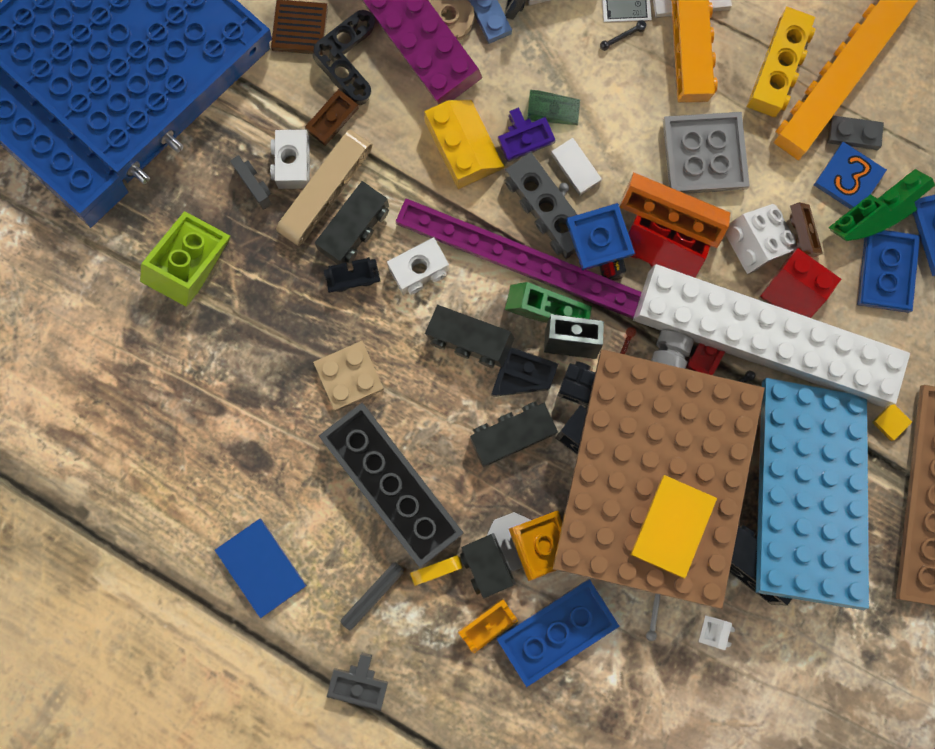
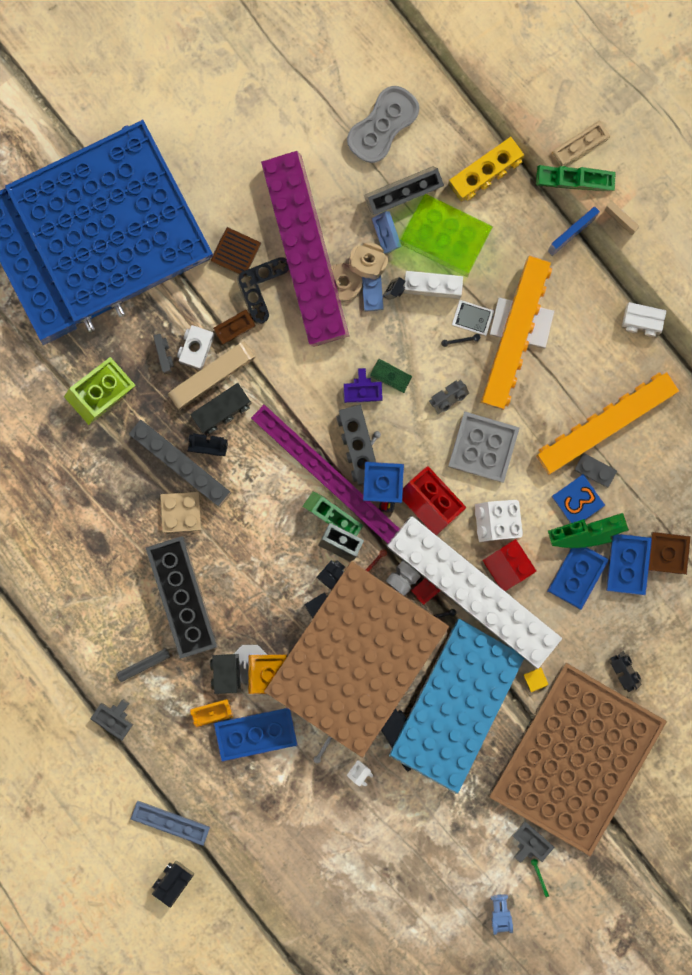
camera: 25 degrees right, 5 degrees up
(260, 568) = (76, 619): blue tile -> none
(324, 311) = (180, 463): none -> dark grey brick
(425, 253) = (244, 451): white brick -> none
(436, 570) = (191, 663): yellow beam -> none
(463, 141) = (319, 377): yellow slope -> none
(469, 337) = (270, 517): pearl dark grey brick -> none
(513, 433) = (275, 592): pearl dark grey brick -> none
(524, 374) = (298, 554): black wing -> none
(576, 166) = (390, 423): white tile -> none
(643, 98) = (456, 392): none -> dark grey hinge
(673, 526) = (350, 694): yellow tile -> none
(675, 210) = (444, 481): orange brick -> none
(792, 25) = (580, 377): yellow brick -> none
(803, 221) = (530, 527): reddish brown plate -> none

